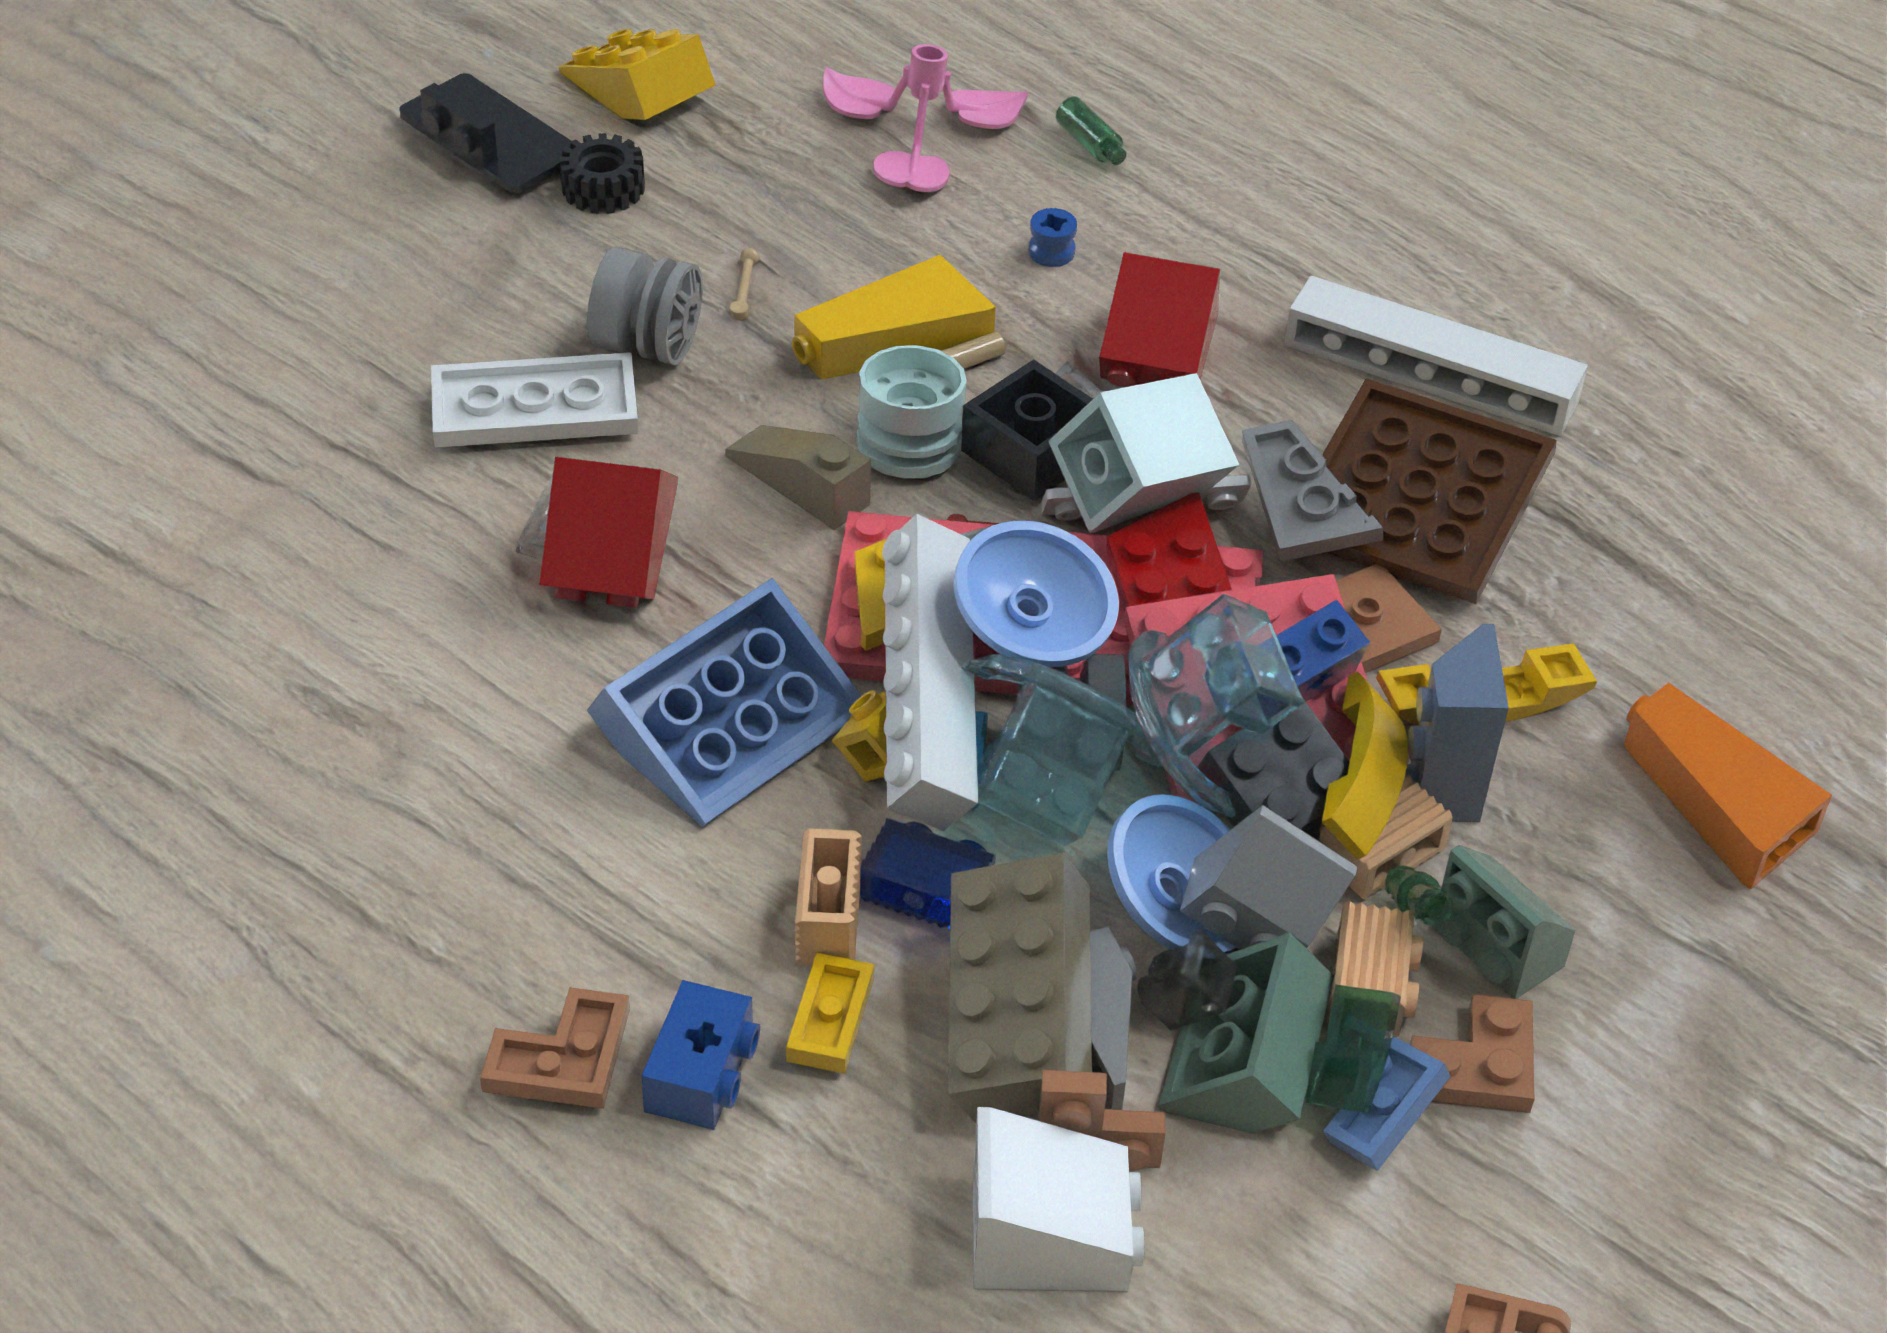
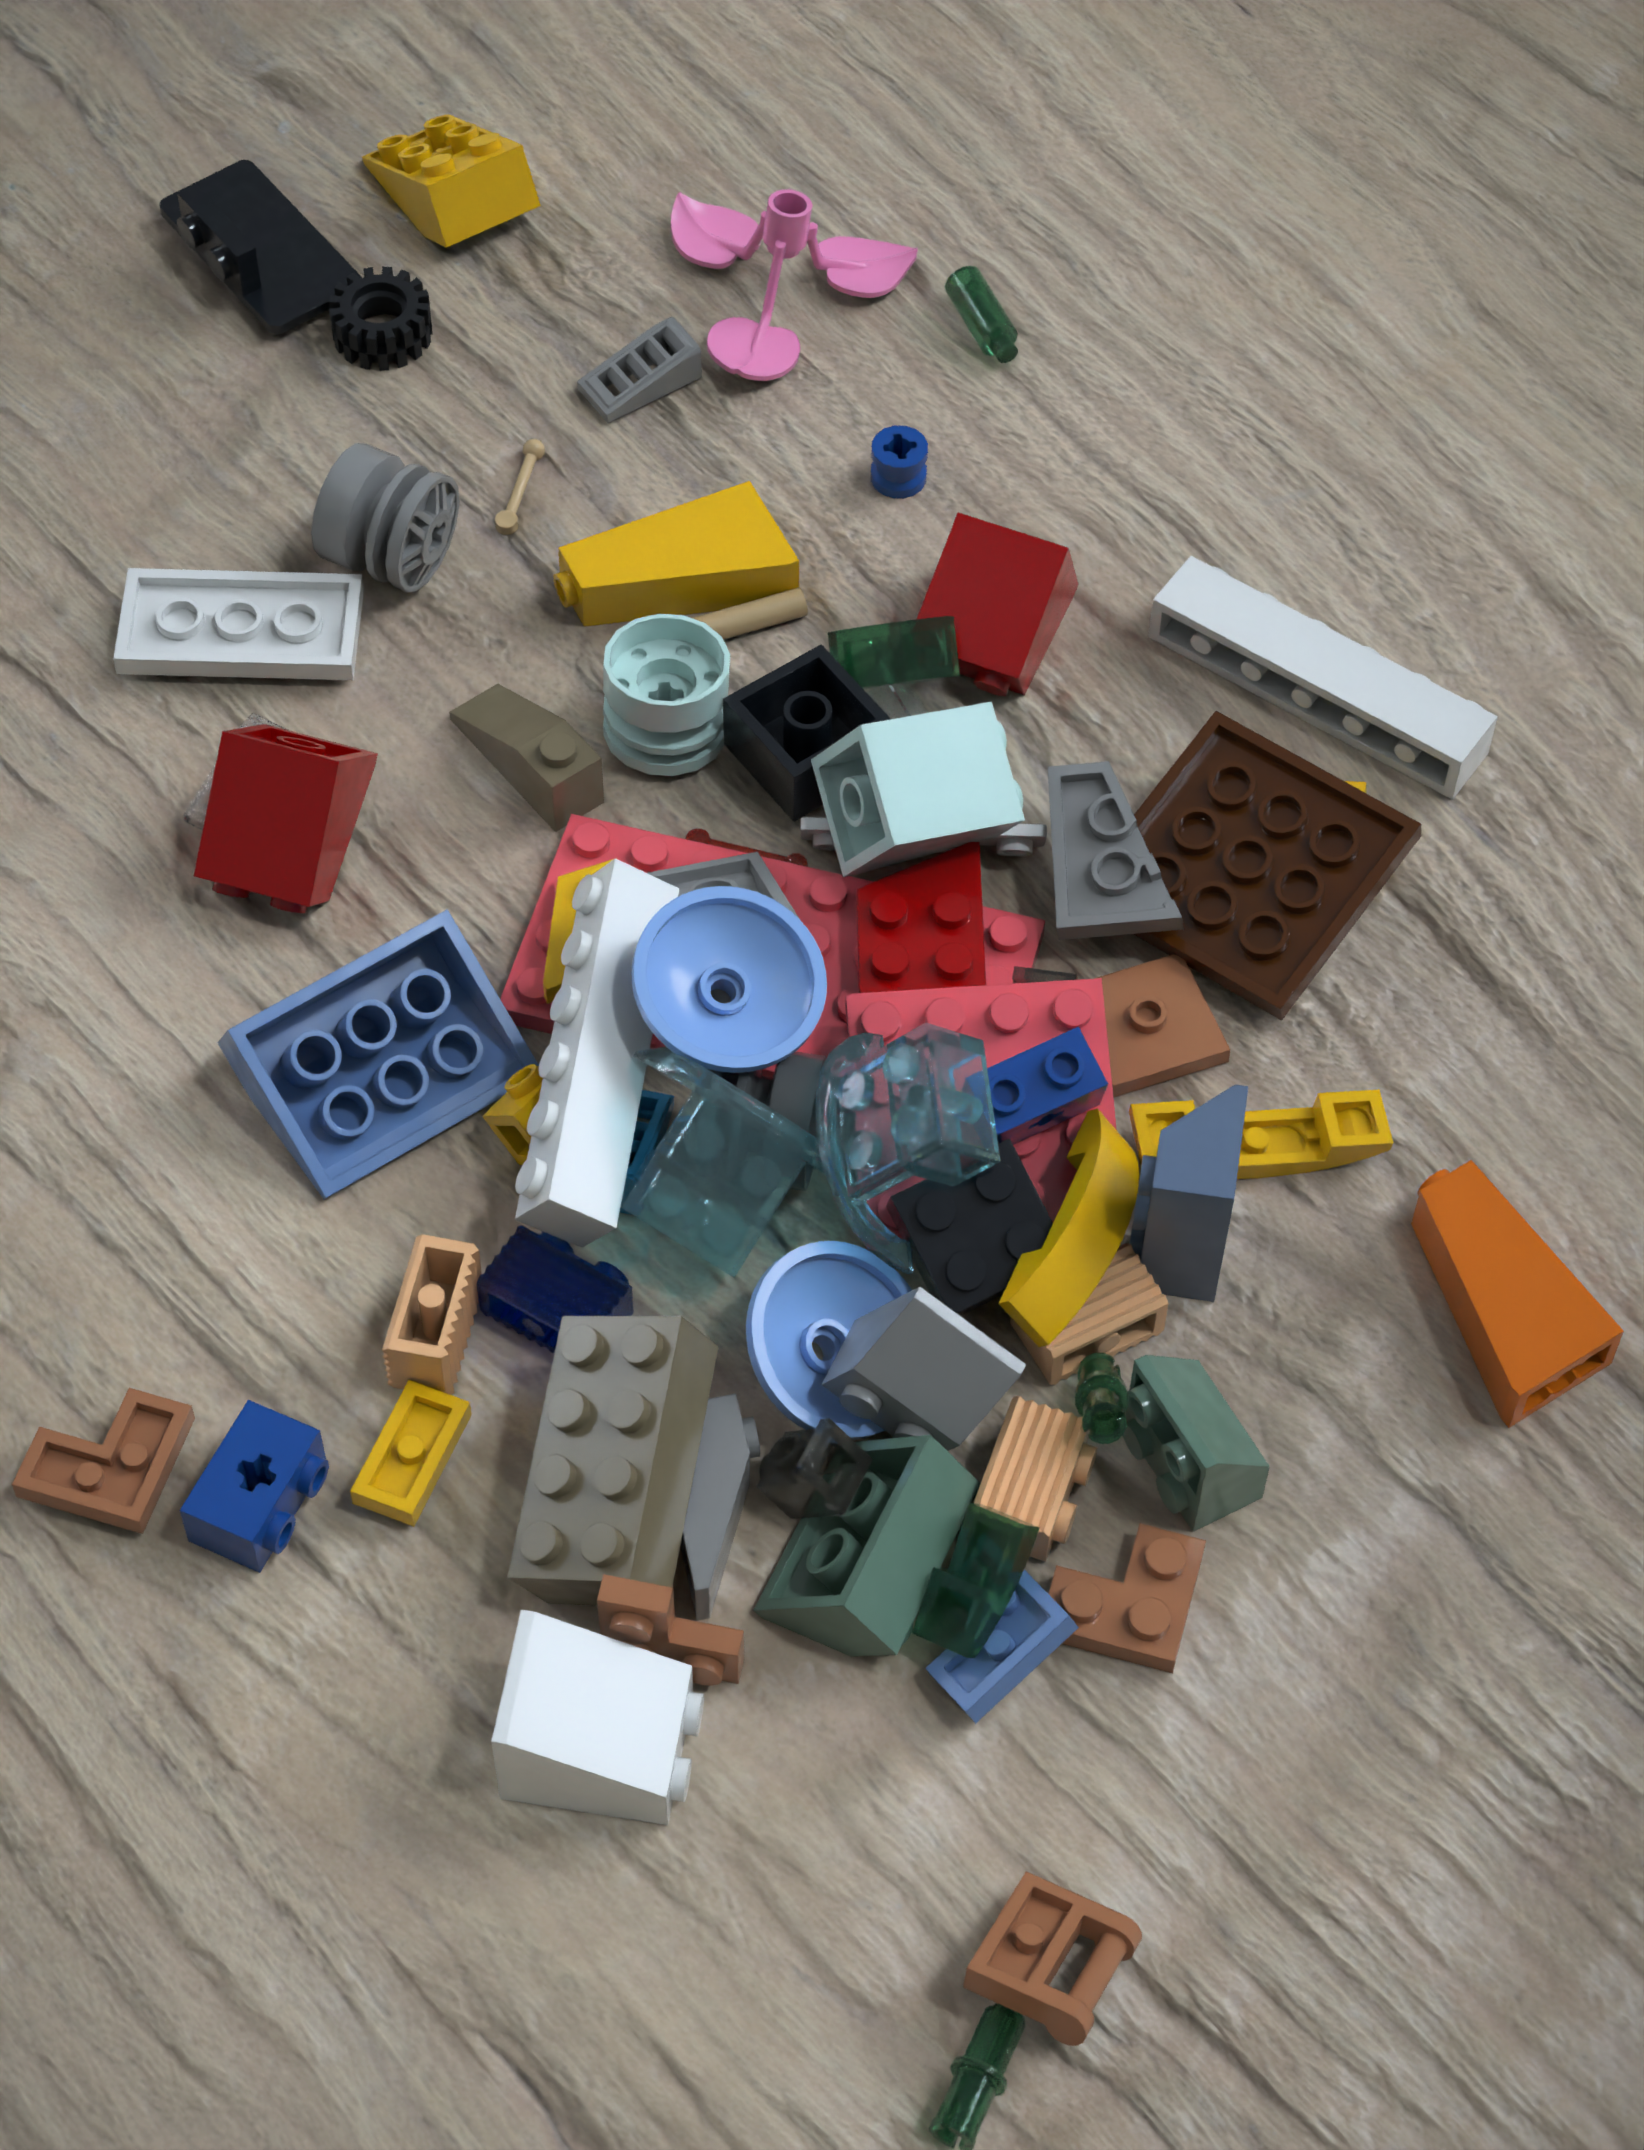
camera: 10 degrees right, 10 degrees up
(842, 171) = (665, 346): none -> light grey slope
(1098, 360) = (898, 651): none -> clear green slope

